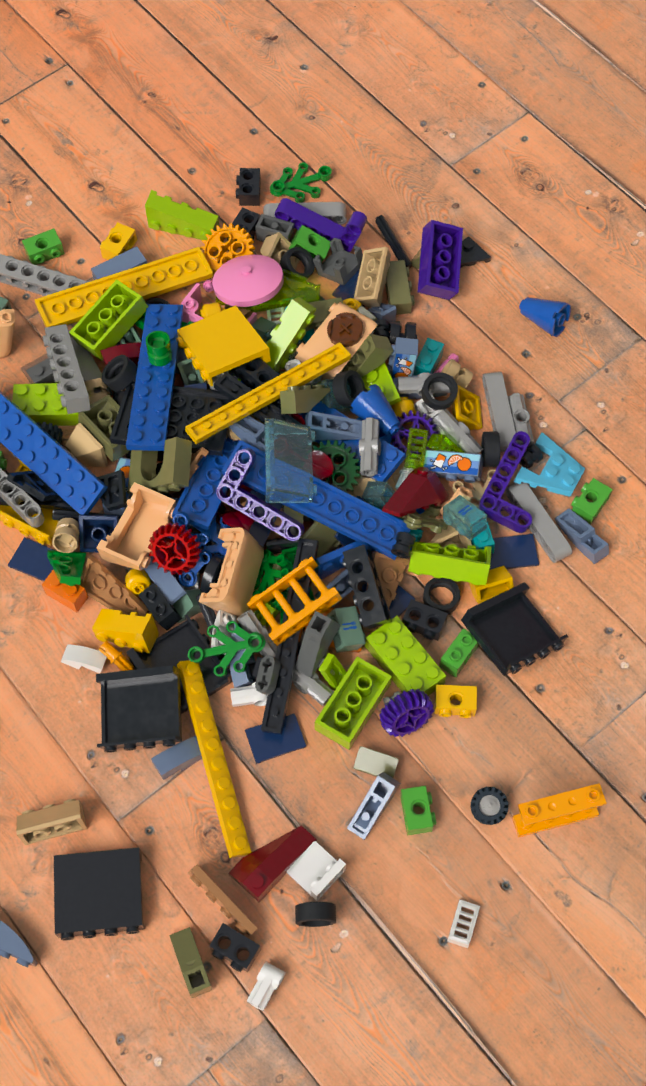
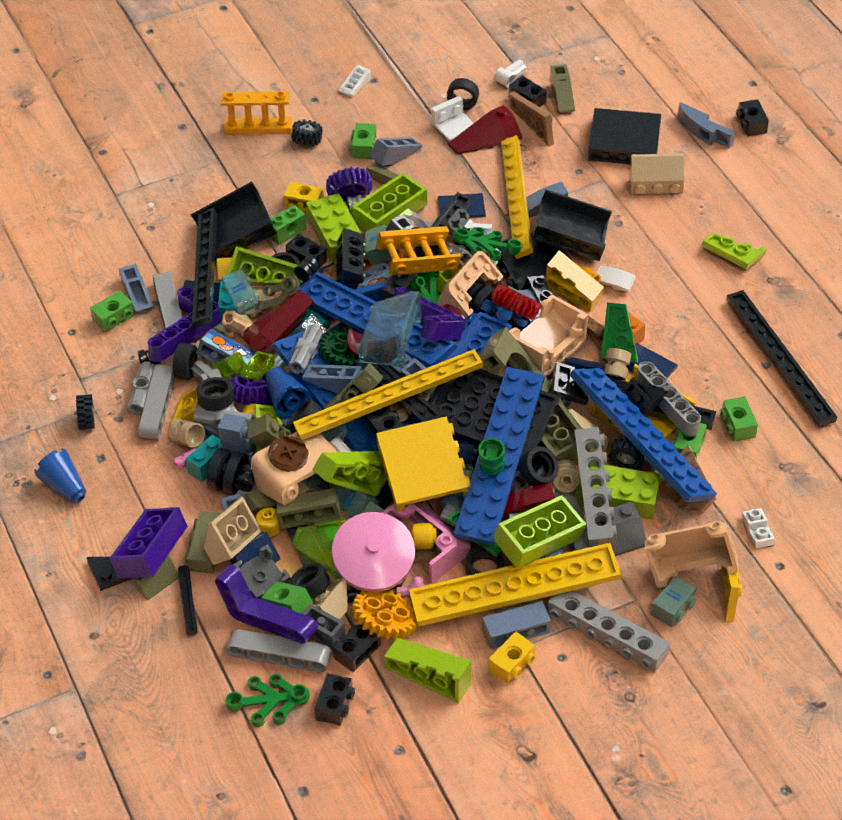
camera: 165 degrees left, 15 degrees down
(43, 247) = (596, 679): bright green brick -> none
(517, 552) = (204, 268): none -> black plate
(558, 377) = (85, 412): none -> black wheel
(559, 473) = (128, 338): medium azure wing -> none

